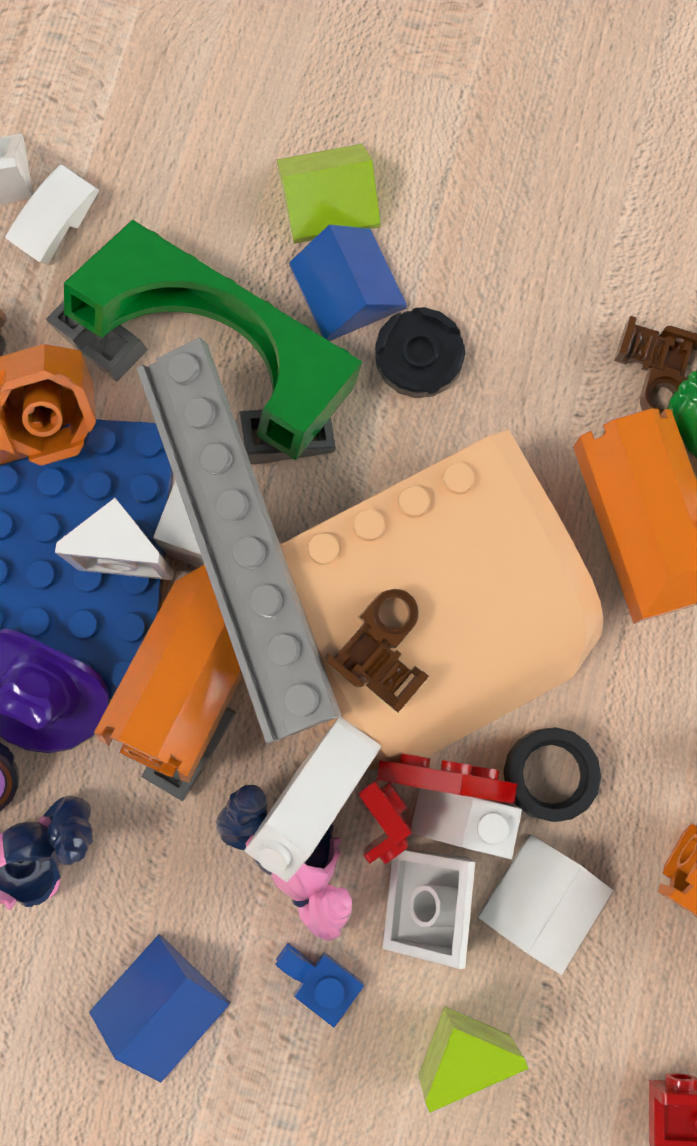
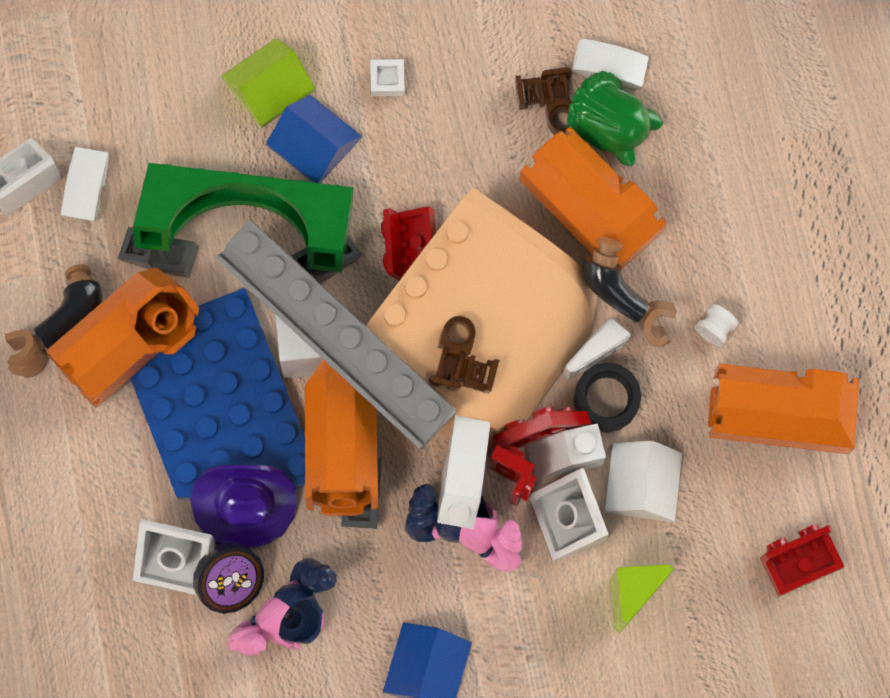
camera: 30 degrees left, 5 degrees down
(113, 545) = (258, 379): white slope -> none
(324, 986) = (528, 600): blue plate -> none
(396, 452) = (405, 237): none -> red bracket
(419, 352) = (386, 164): black tile -> none
(471, 248) = (387, 77): none -> white plate
(580, 702) = (604, 342): none -> white slope
(622, 630) = (605, 280): none -> piece

